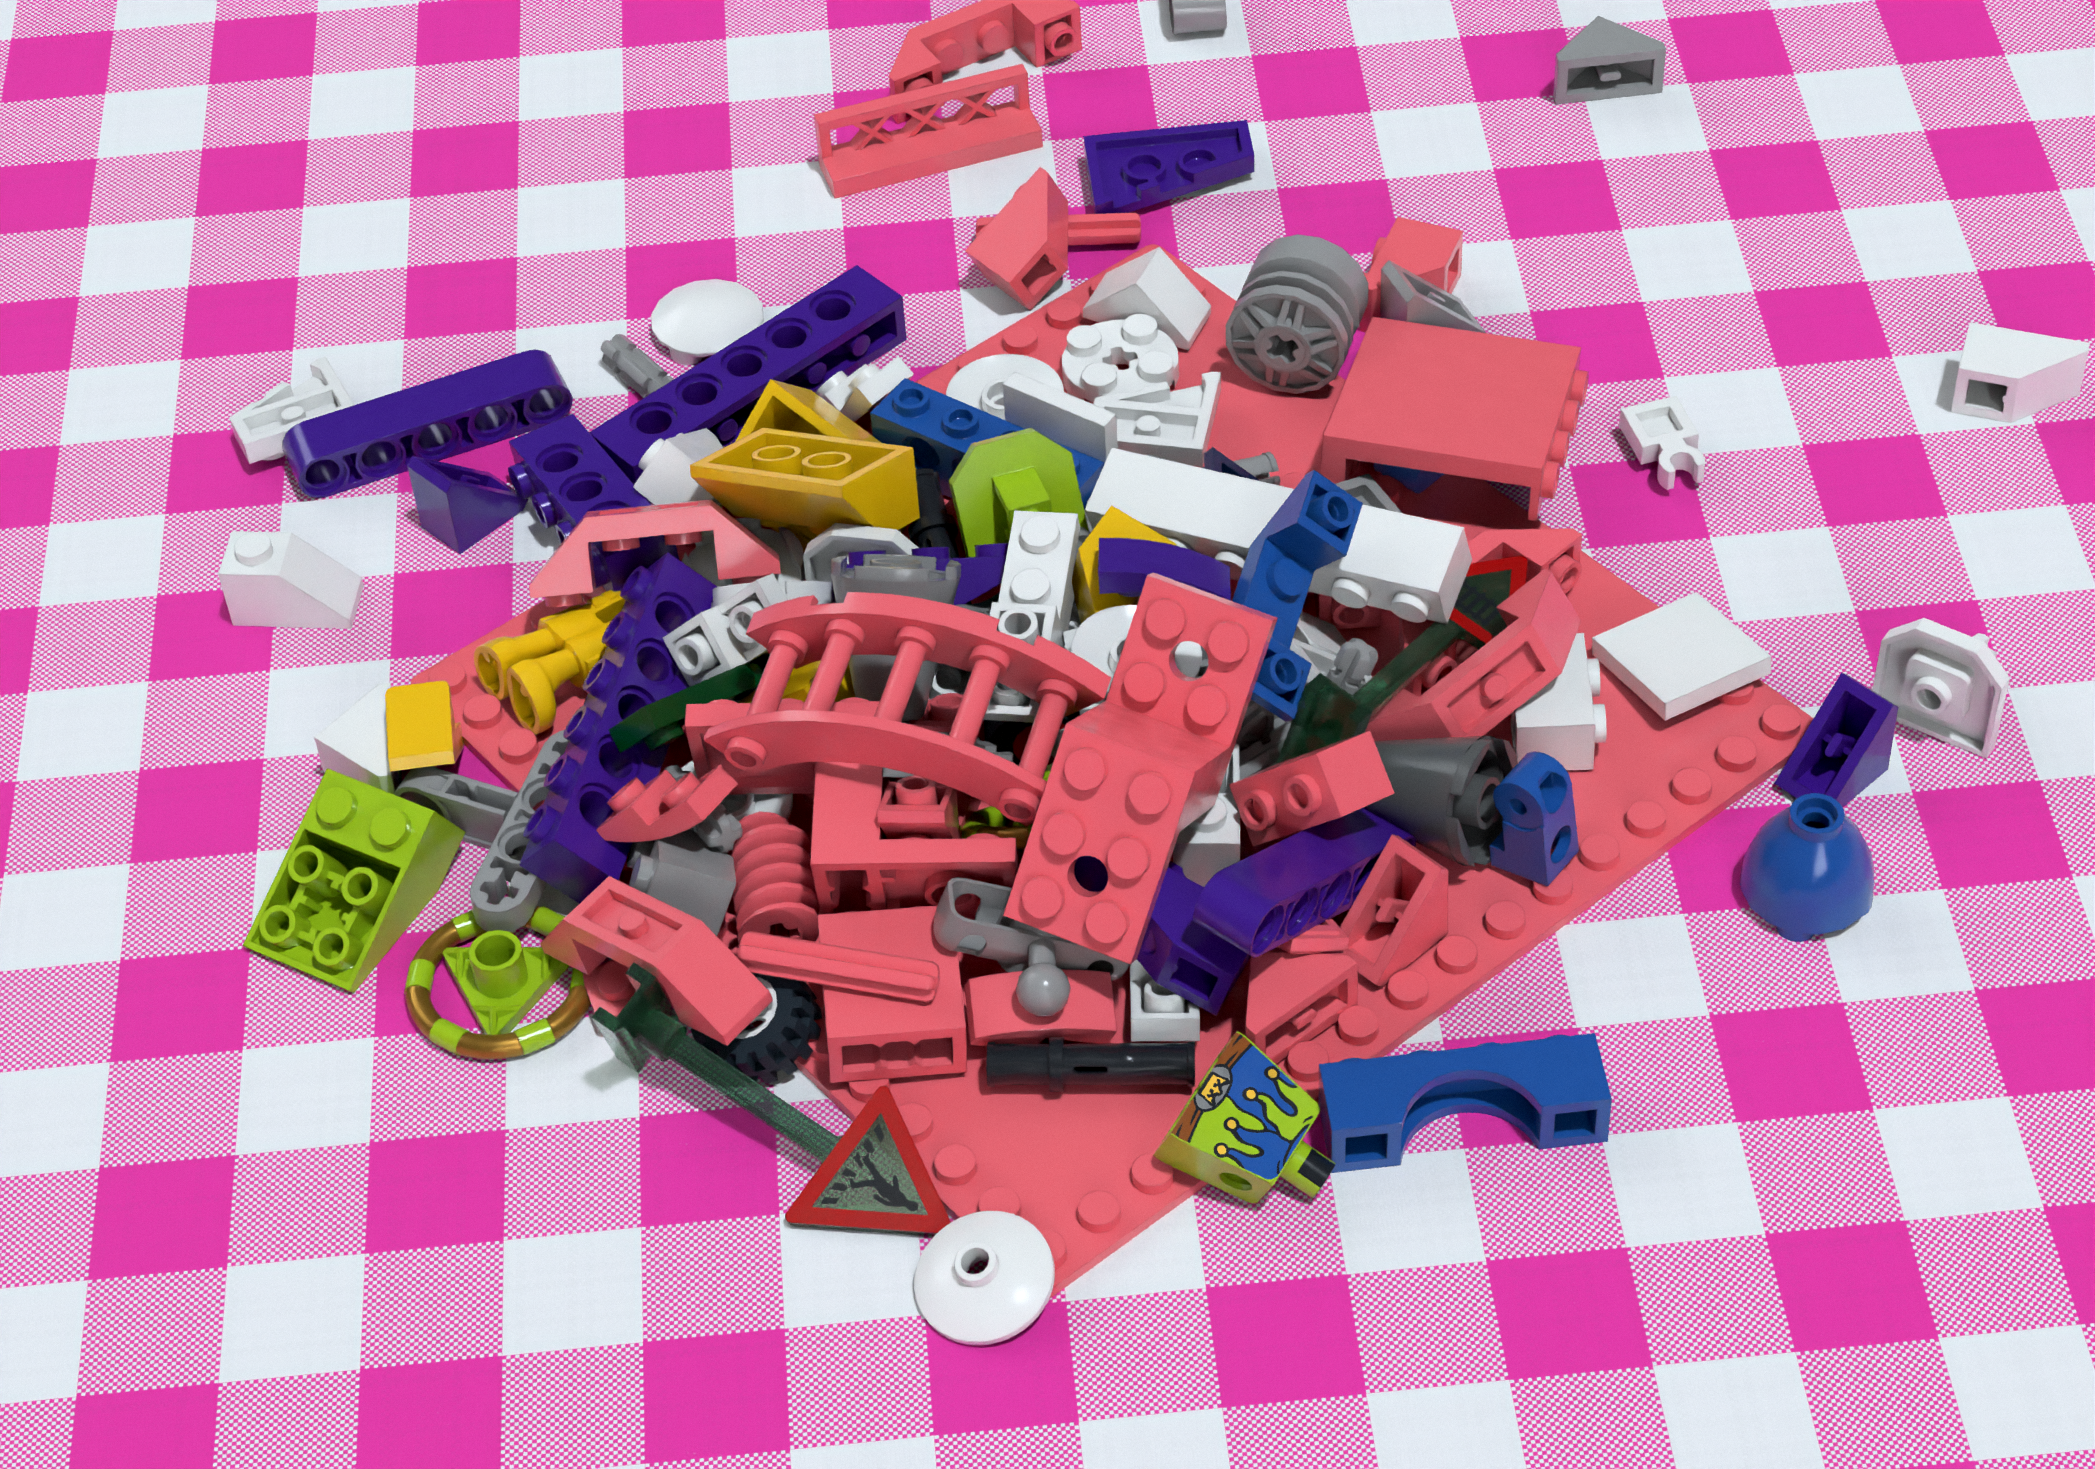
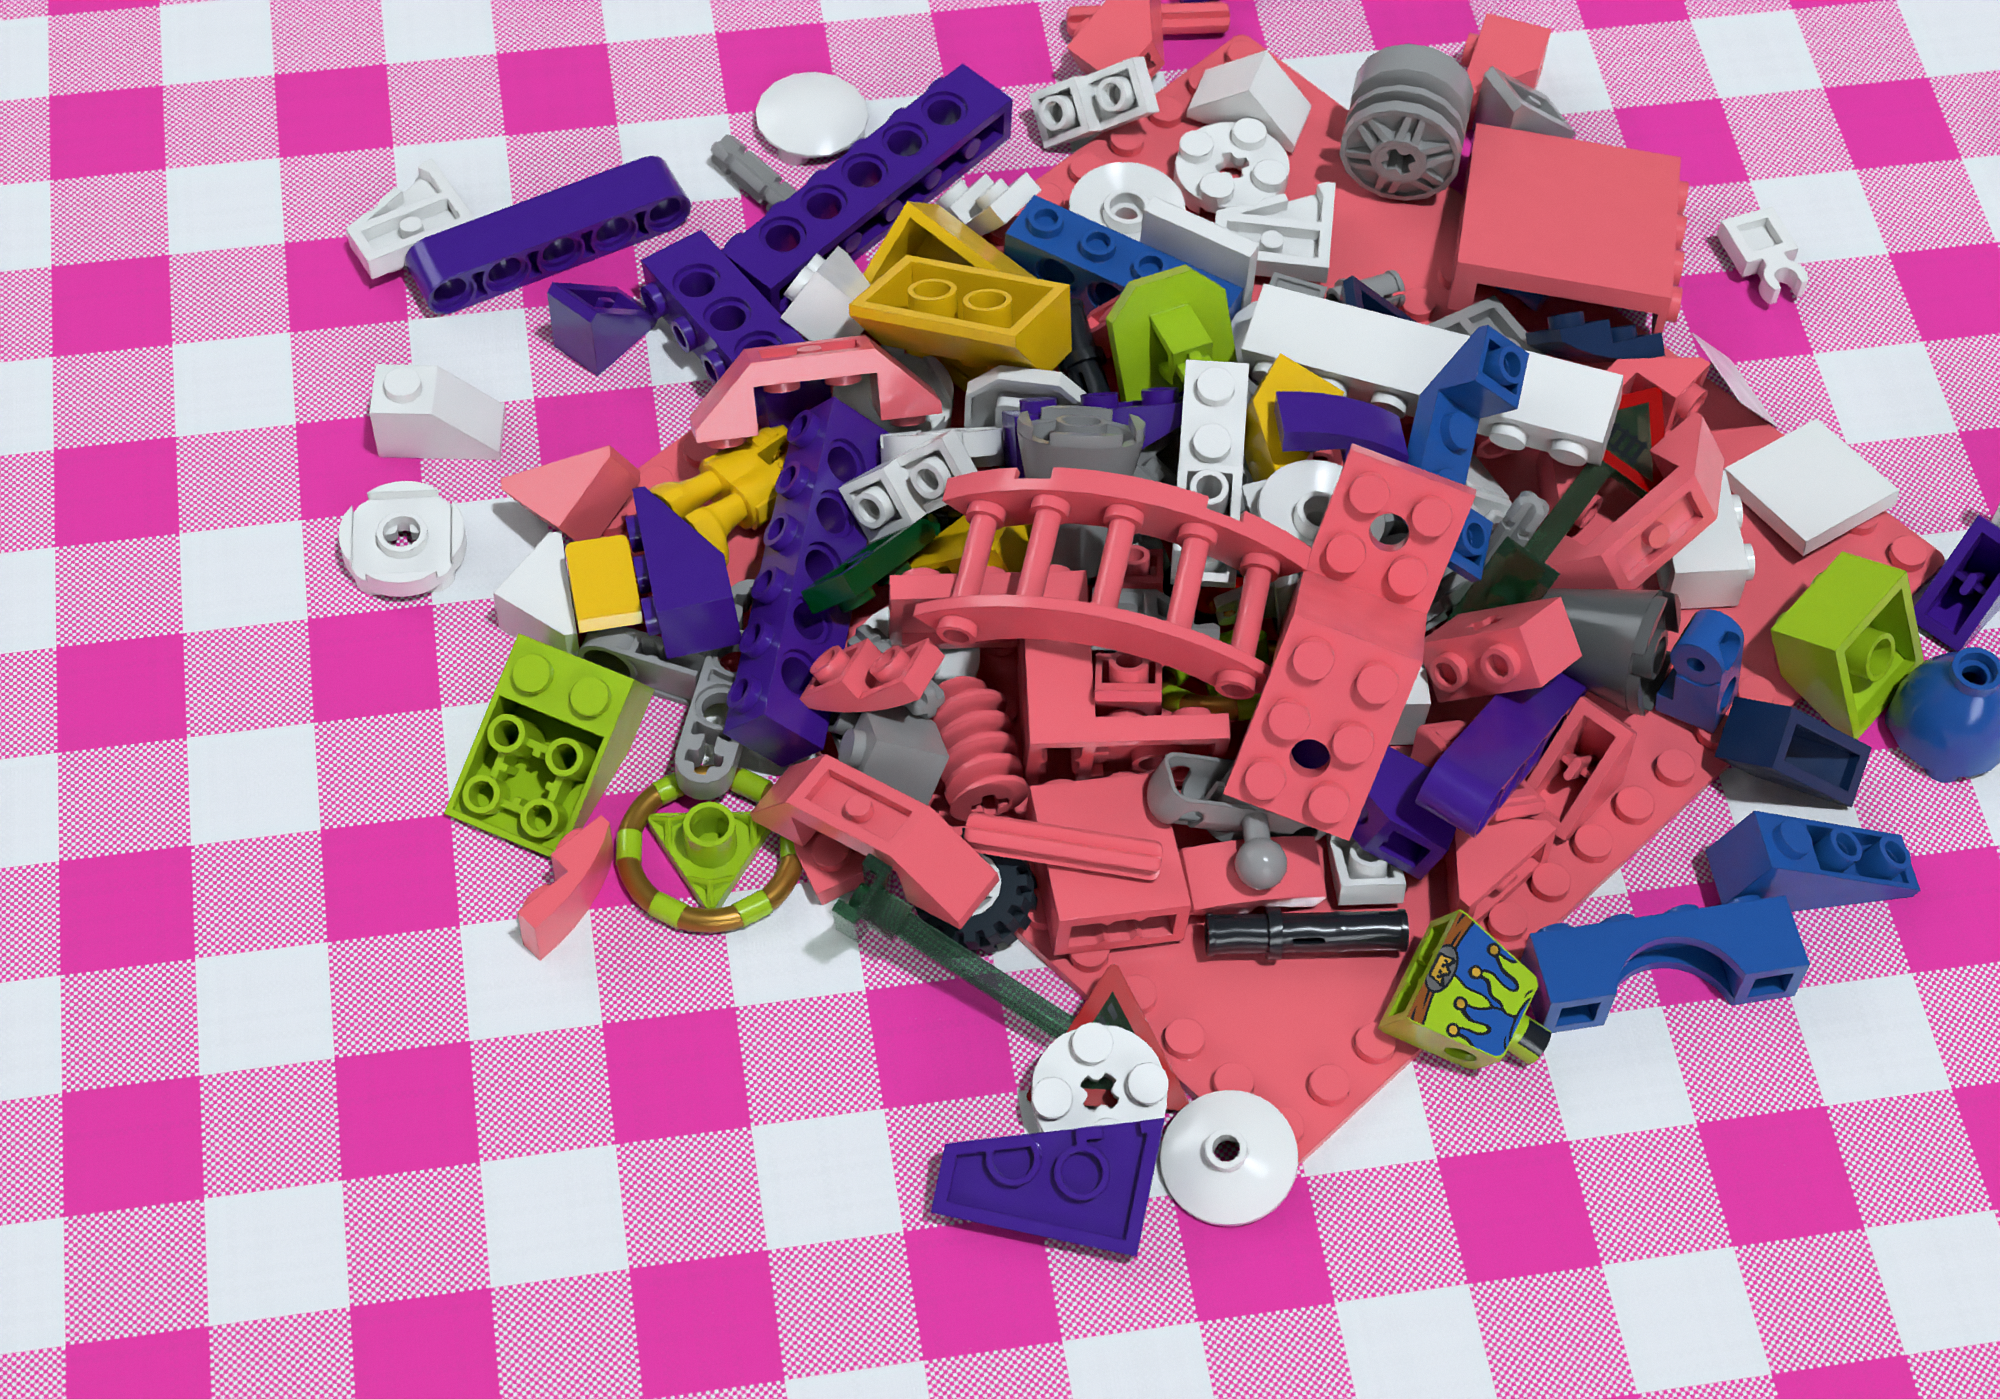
camera: 10 degrees left, 10 degrees up
(259, 719) = (408, 569): none -> white plate
(364, 1001) = (579, 873): none -> coral slope
(413, 645) = (577, 492): none -> coral slope
(496, 726) = (687, 579): none -> dark purple slope
(799, 1295) = (1057, 1185): none -> dark purple wing
(858, 1251) = (1097, 1053): none -> white plate
(986, 302) = (1094, 102): none -> white slope
(1461, 509) = (1593, 341): none -> dark blue slope
(1614, 555) = (1734, 380): none -> sticker
(1627, 901) = (1793, 750): none -> dark blue slope
(1635, 1008) = (1810, 863): none -> blue slope
(1697, 798) = (1850, 641): none -> lime slope

